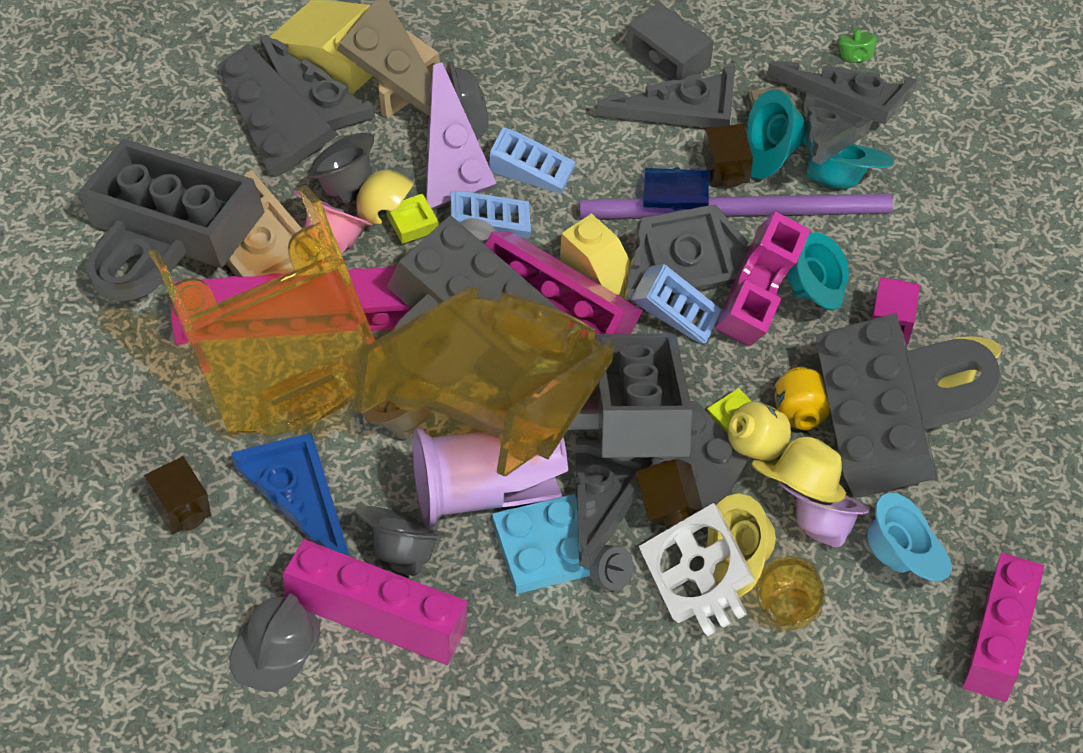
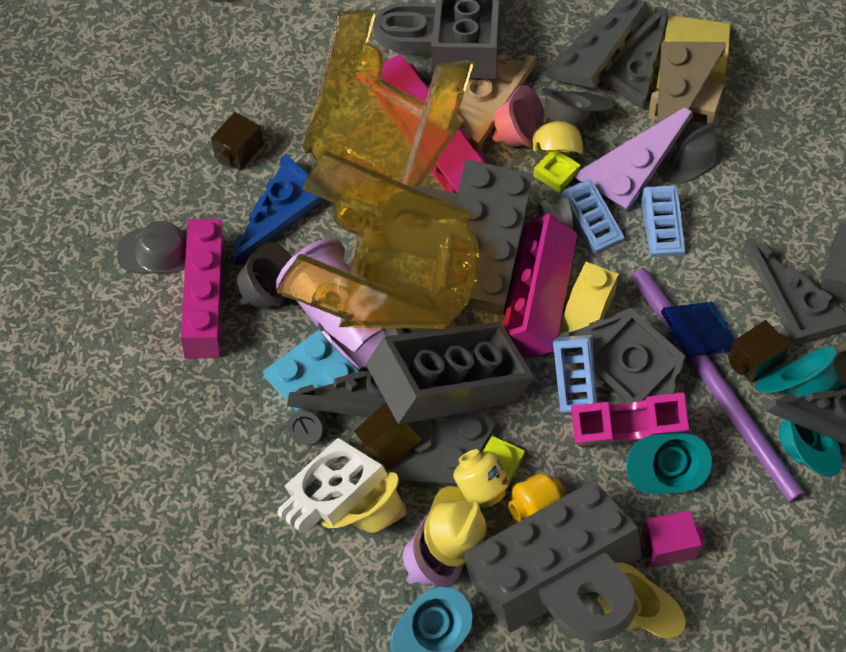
camera: 70 degrees right, 5 degrees up
(790, 593) = (338, 559): clear yellow hair -> none

